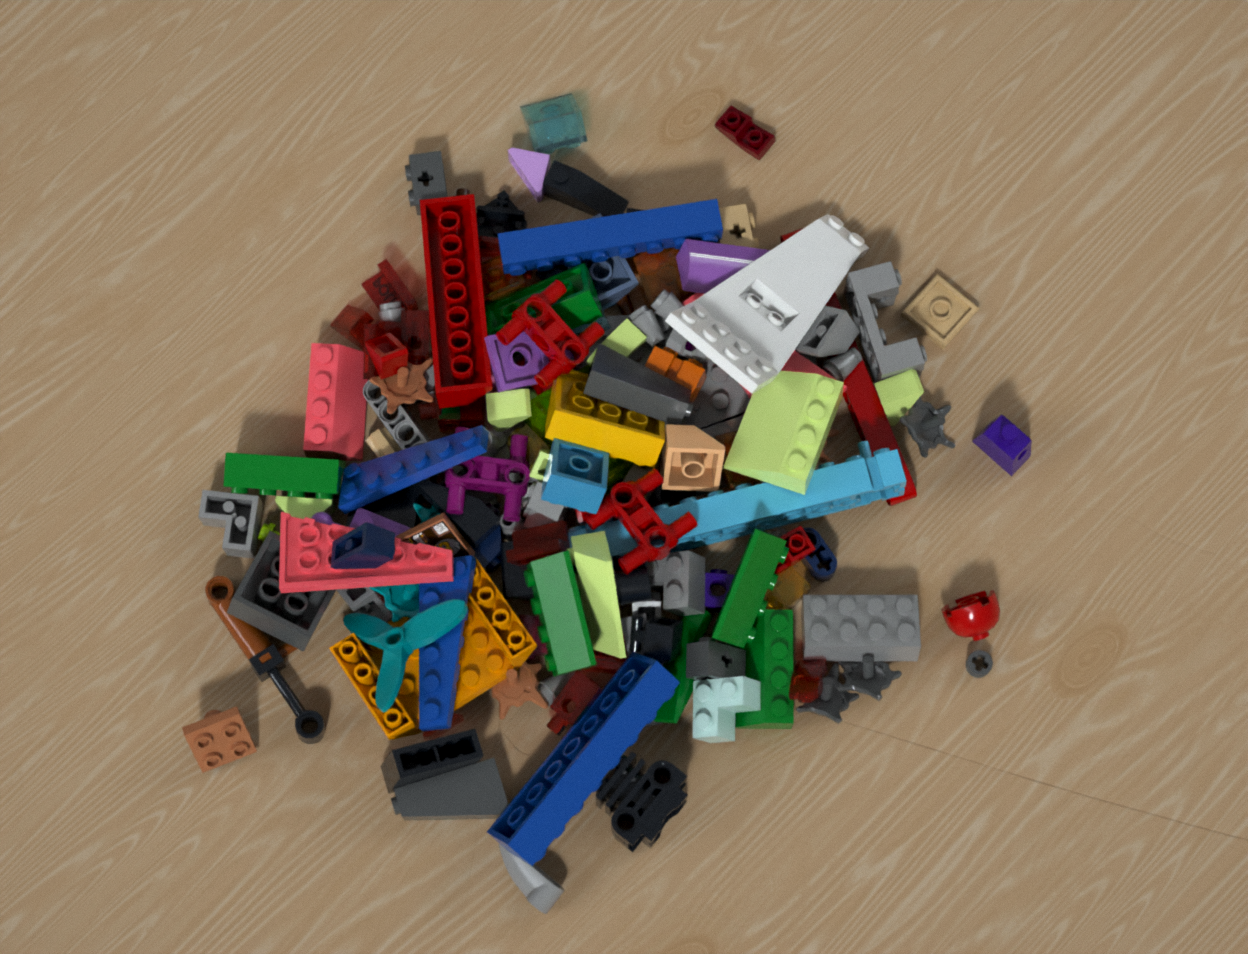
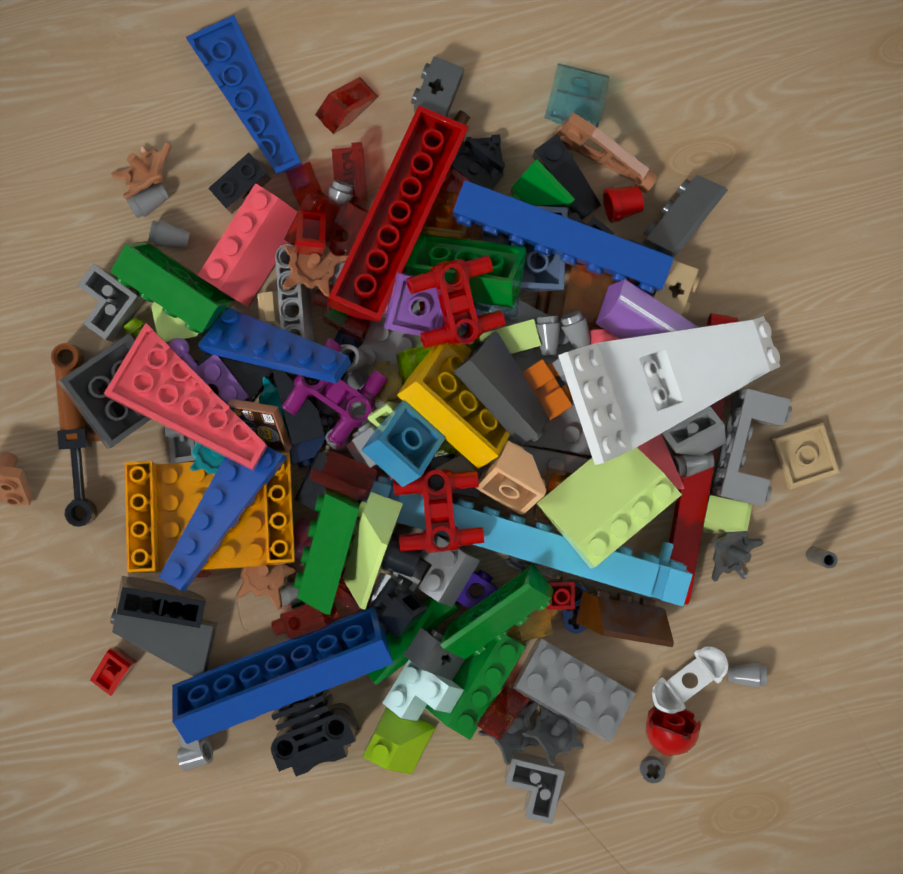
camera: 30 degrees right, 15 degrees up
(202, 389) = (143, 169): none -> nougat piece
(218, 416) = (147, 200): none -> light grey cone
(244, 268) = (235, 72): none -> blue wing
(254, 435) = (168, 235): none -> light grey cone
(294, 354) = (238, 181): none -> black brick
(353, 239) = (345, 105): none -> clear red slope
(363, 548) = (190, 402): dark blue slope -> none
(401, 641) = (201, 496): teal piece -> none
(421, 857) = (112, 670): none -> red slope
(508, 408) = (386, 341): yellowish green slope -> none
(531, 168) = (535, 129): lavender slope -> none
(569, 206) = (540, 188): none -> green slope
(570, 147) = (576, 131): none -> nougat plate
(645, 187) = (622, 202): none -> red piece
(707, 163) = (684, 215): none -> dark grey slope
(729, 771) = (398, 742): none -> lime slope
(738, 544) = (516, 563): none -> dark grey bush
(744, 133) = (737, 200): dark red slope -> none
(865, 533) = (625, 618): none -> reddish brown slope
(885, 727) = (541, 782): none -> light grey brick
(970, 540) = (708, 666): none -> white piece
(1004, 444) = (788, 603): dark purple torso -> none
(1006, 384) = (821, 557): none -> dark grey piece
(1010, 527) = (748, 674): none -> light grey cone

